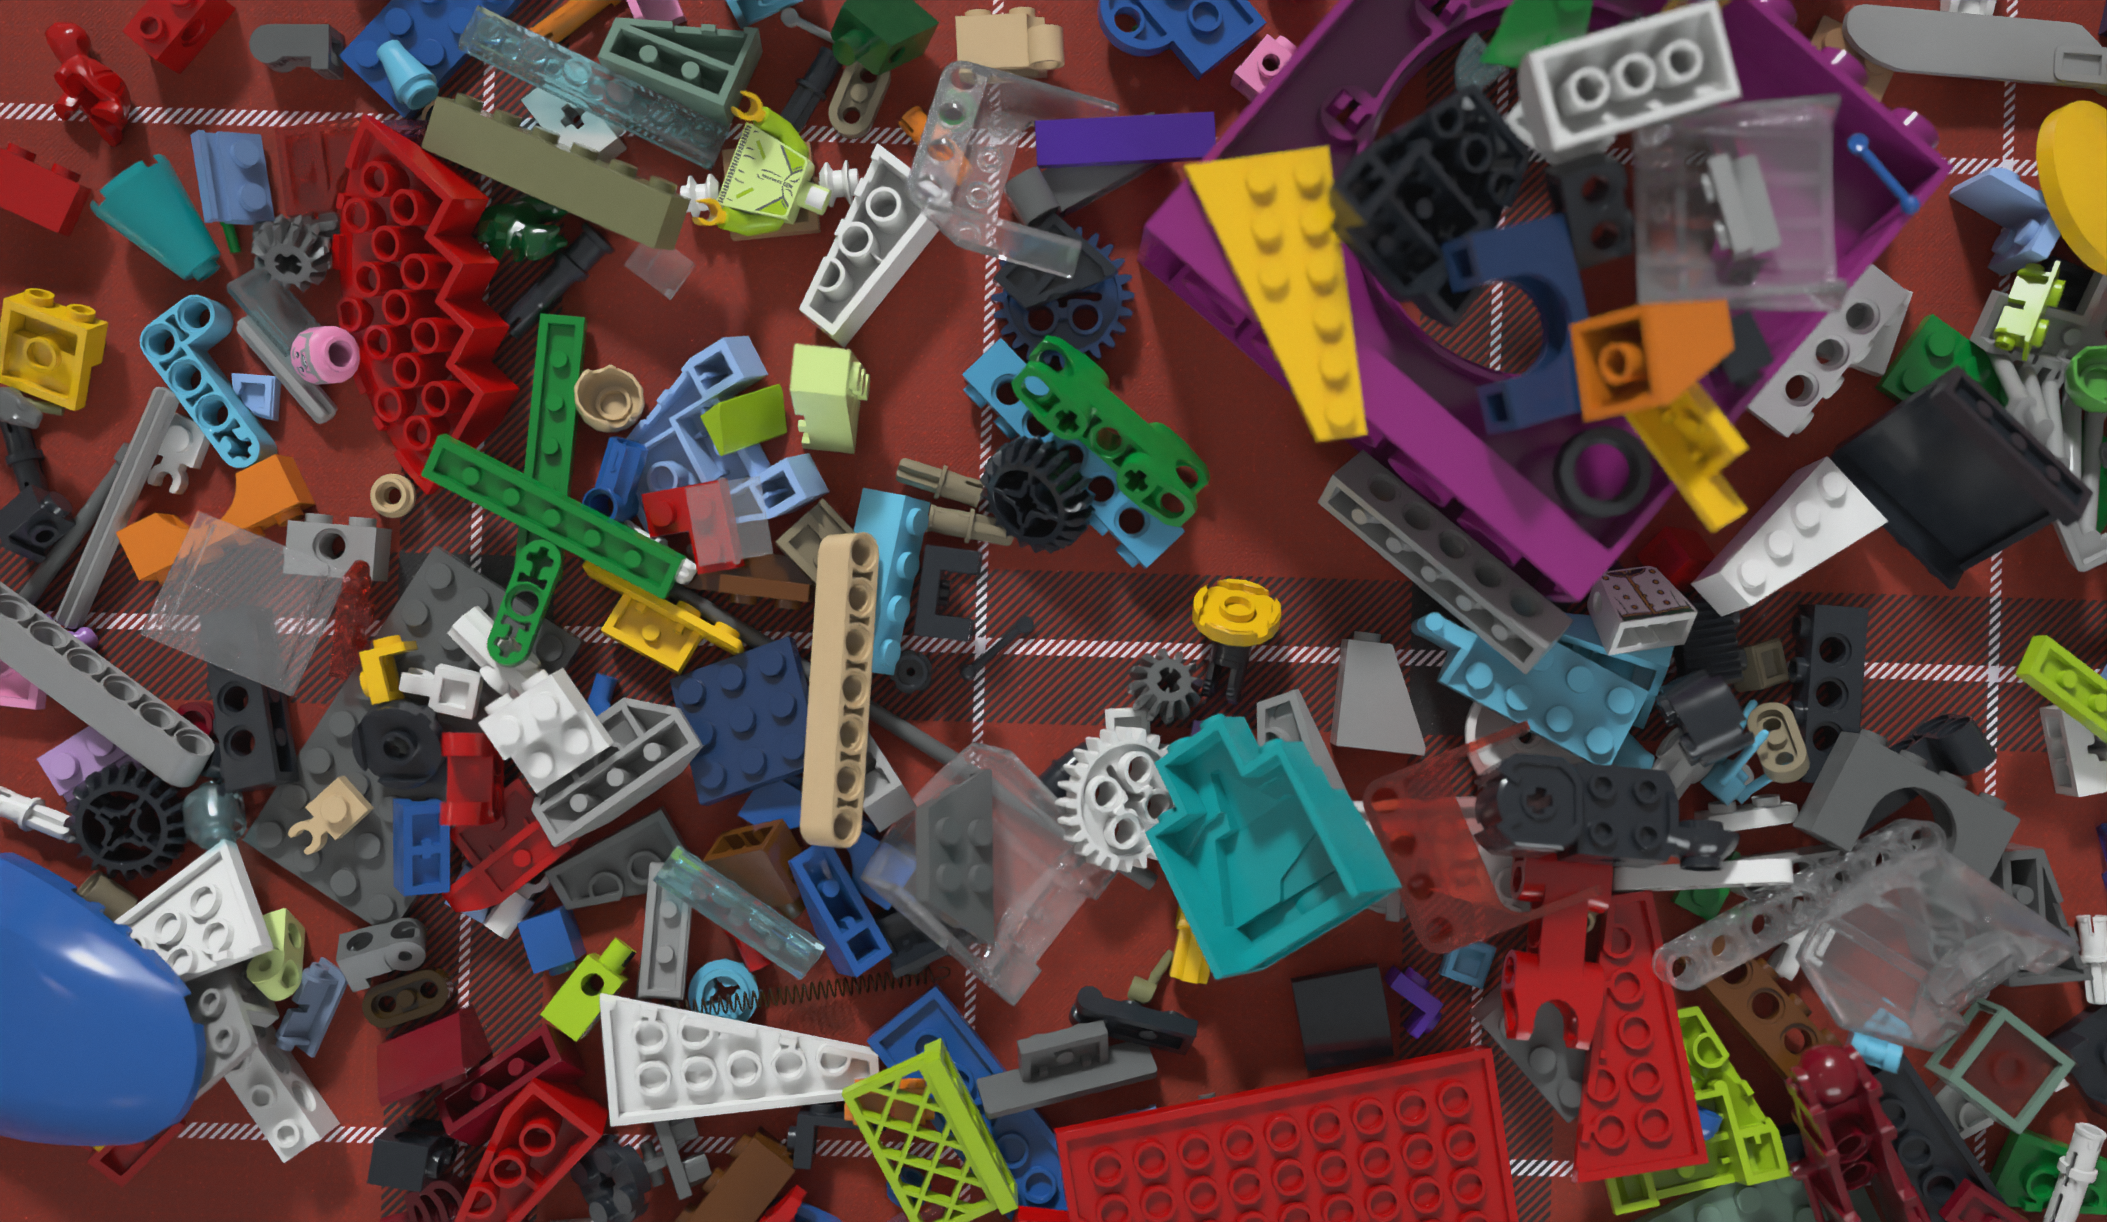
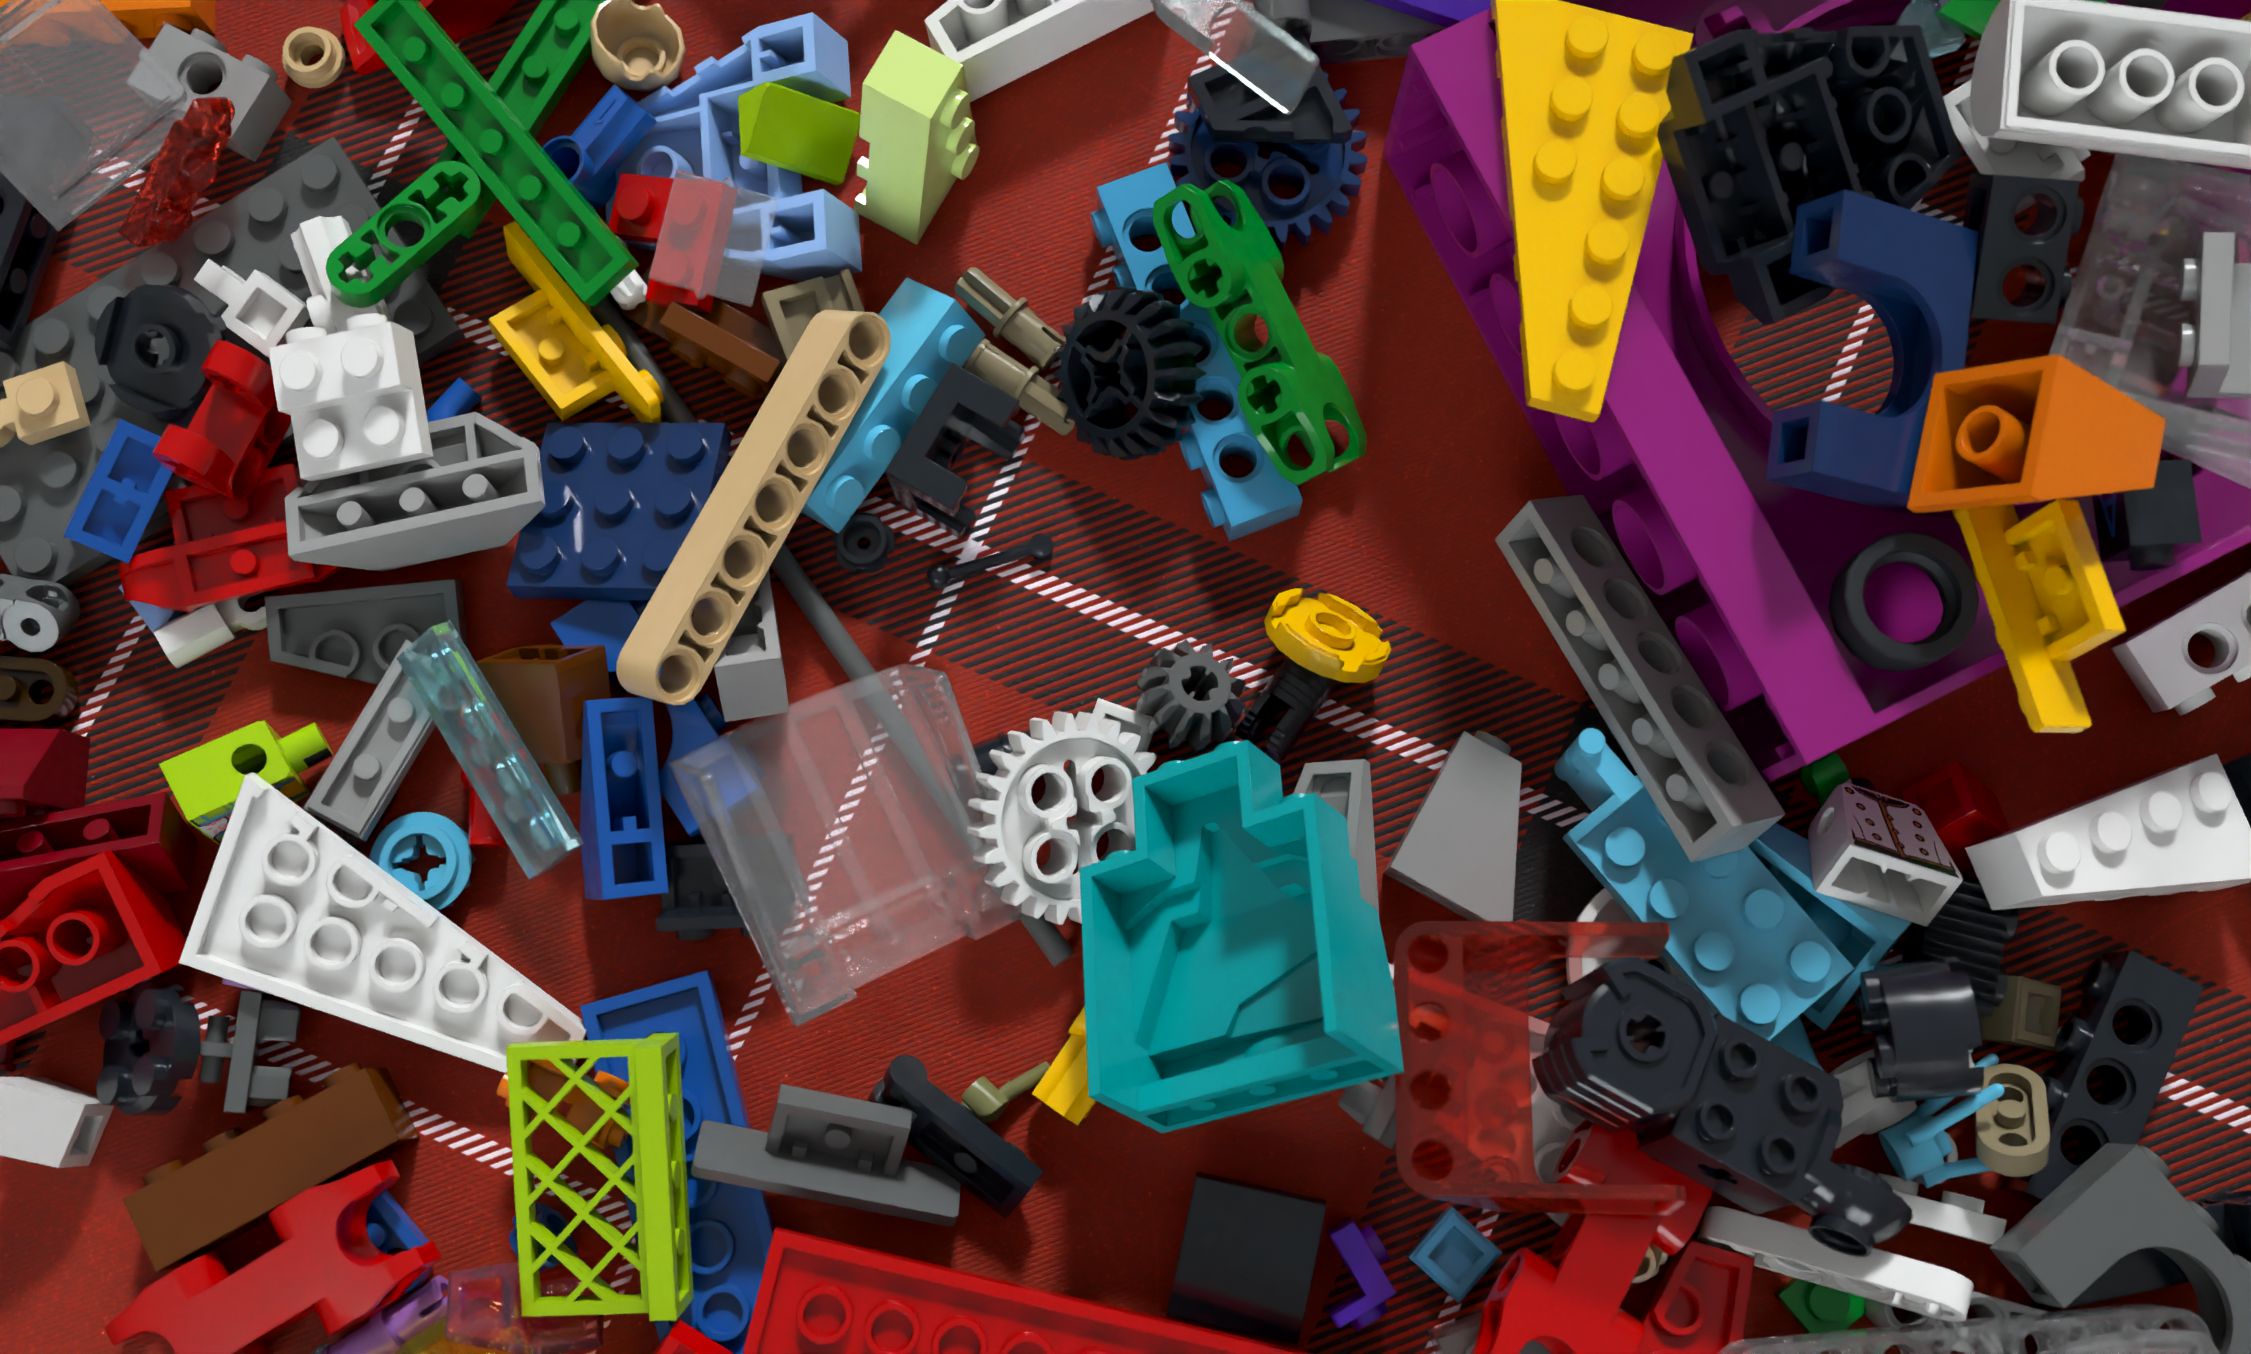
camera: 25 degrees right, 10 degrees down
(379, 673) = (188, 243): yellow bracket -> none
(552, 940) = (230, 689): blue brick -> none
(728, 999) = (552, 910): dark brown piece -> none
(804, 1136) = (436, 1102): black bracket -> none
(957, 856) = (811, 789): dark grey wing -> none

